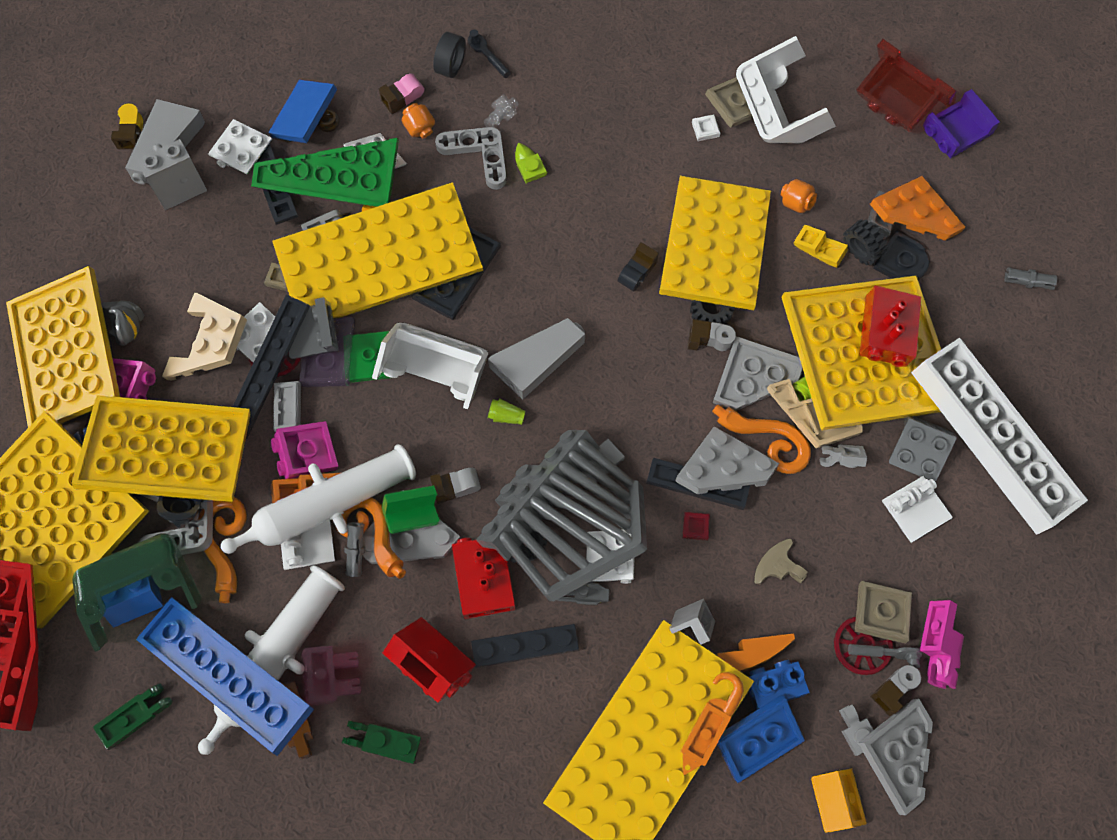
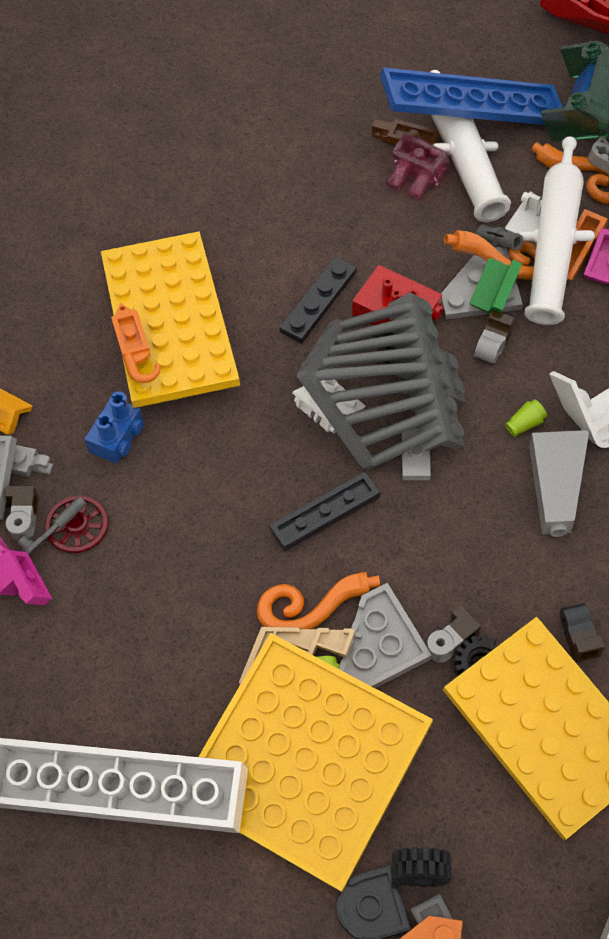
camera: 135 degrees right, 10 degrees down
(130, 717) = (498, 54): dark green hinge -> none
(385, 742) = (338, 174): dark green hinge -> none
(429, 660) = (365, 222): red piece -> none
(696, 526) = (292, 483): dark red tile -> none
(698, 617) = (216, 406): light grey panel -> none
(725, 465) = (320, 540): light grey plate -> none
(756, 651) = (154, 434): orange slope -> none
(760, 739) = (91, 385): blue tile -> none
(778, 564) = (200, 517): dark tan piece -> none
(798, 196) = (535, 859): orange head -> none
(816, 244) = (461, 833): yellow slope -> none
(847, 455) = (230, 649): light grey plate -> none
(883, 612) = (82, 557): dark tan plate -> none
(890, 326) = (308, 787): red piece -> none
(917, 508) = (131, 668): white hinge -> none
(922, 448) = (176, 724): dark grey bracket -> none

